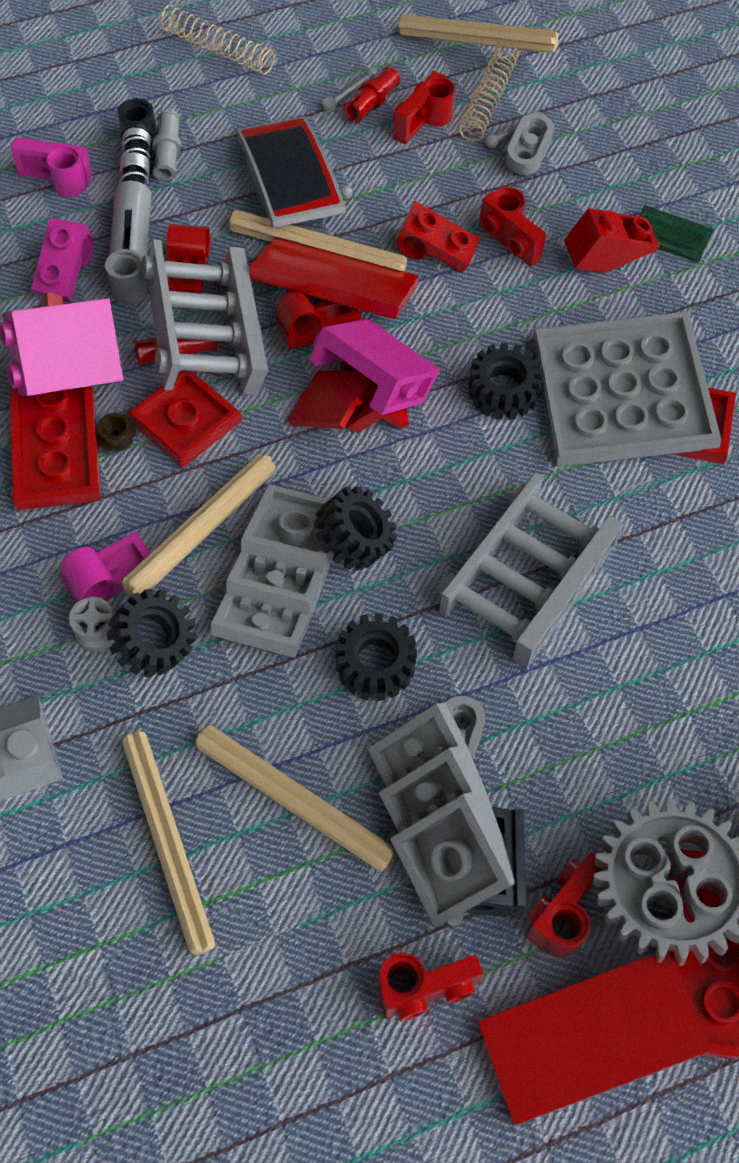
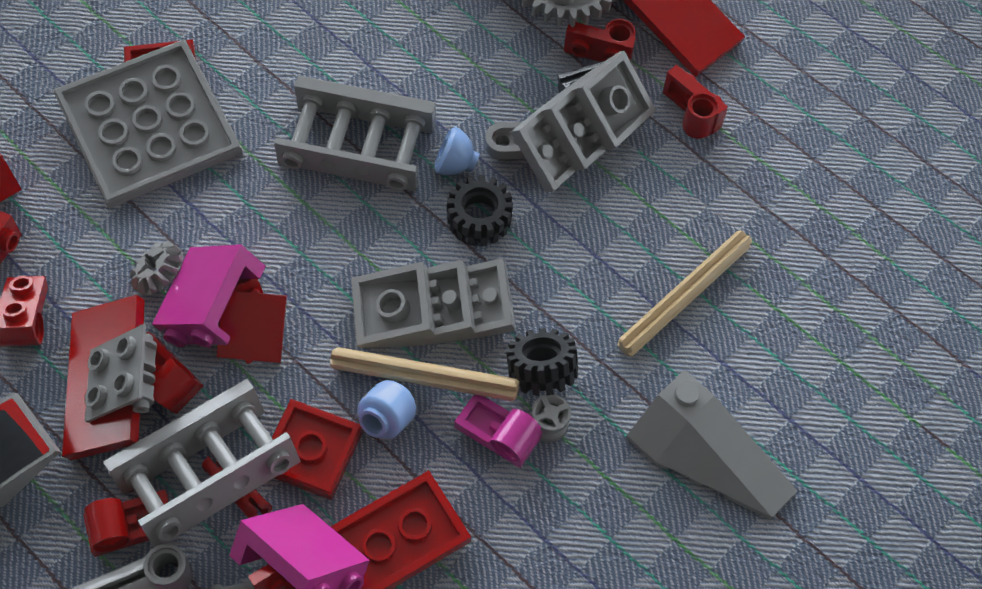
camera: 115 degrees left, 0 degrees up
(115, 424) = (351, 486): dark brown plate -> none
(180, 479) = (386, 410): none -> light blue head
(261, 228) = (53, 475): tan axle -> none
(295, 798) = (611, 228): tan axle -> none
(301, 263) = (121, 374): none -> light grey hinge
(341, 537) = (380, 253): black tyre -> none
(435, 344) = (166, 259): none -> light grey gear
(459, 658) = (456, 154): none -> light blue brick
(506, 363) = (169, 189): black tyre -> none

